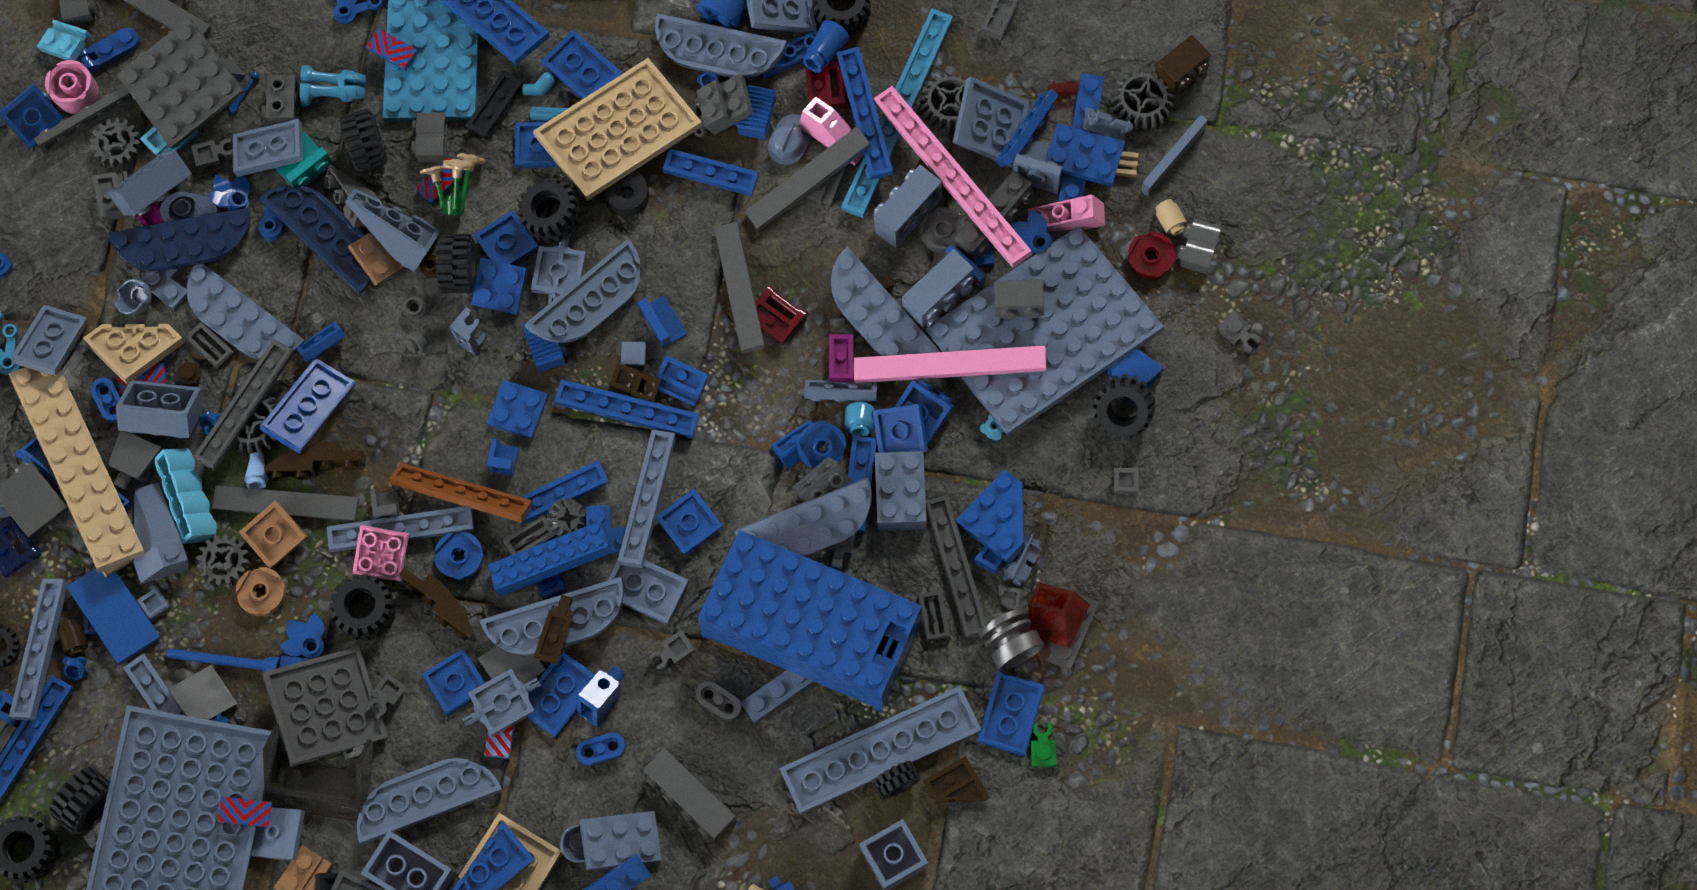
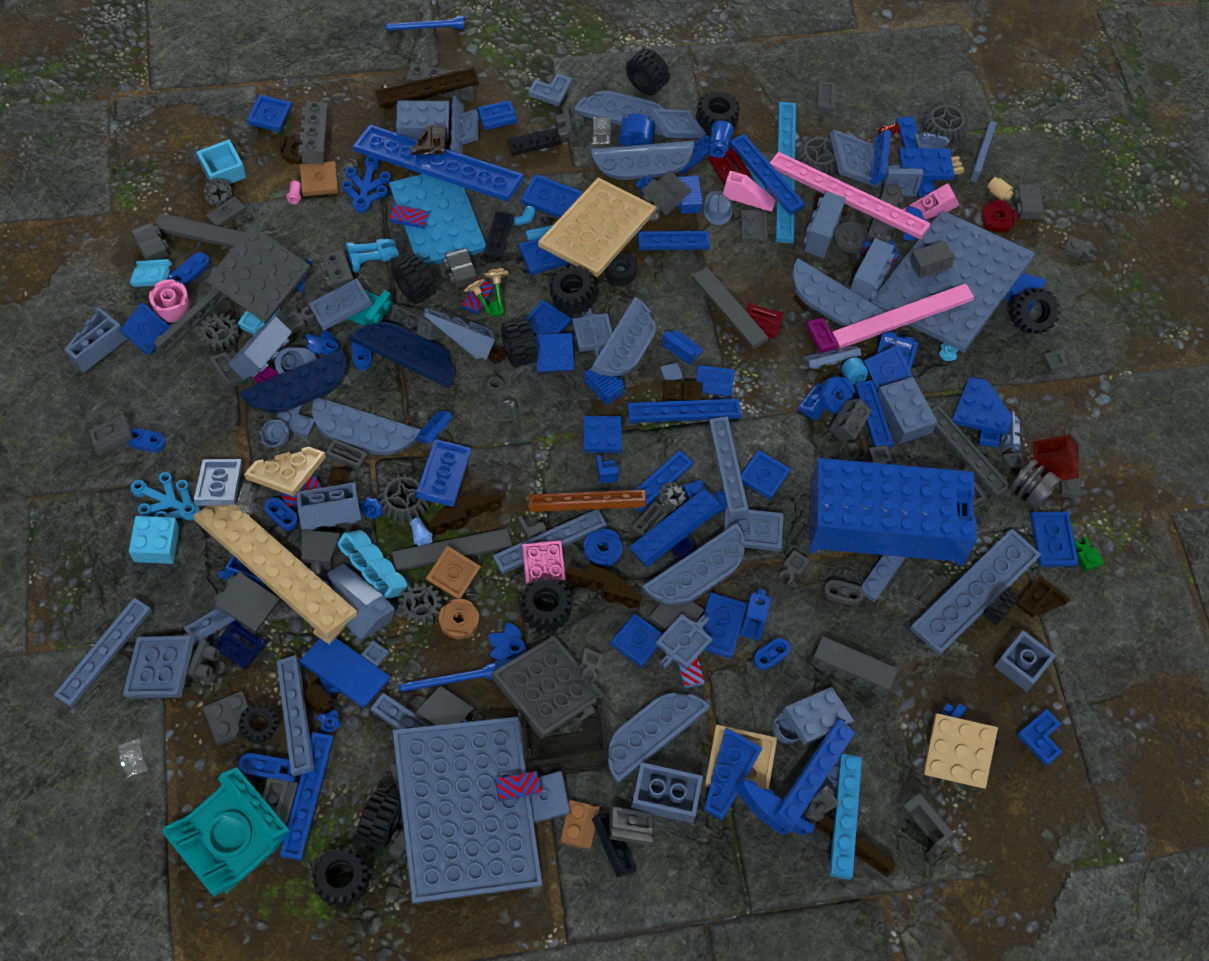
camera: 30 degrees left, 10 degrees down
(243, 405) = (395, 484): dark grey tile -> none
(374, 258) = (453, 356): medium nougat plate -> none
(464, 329) = (546, 388): sand blue hinge -> none
(555, 631) = (707, 575): dark brown hinge -> none
(807, 178) = (746, 225): dark grey tile -> none
(817, 521) = (866, 440): sand blue plate -> none
(1184, 64) = (967, 91): dark brown brick -> none

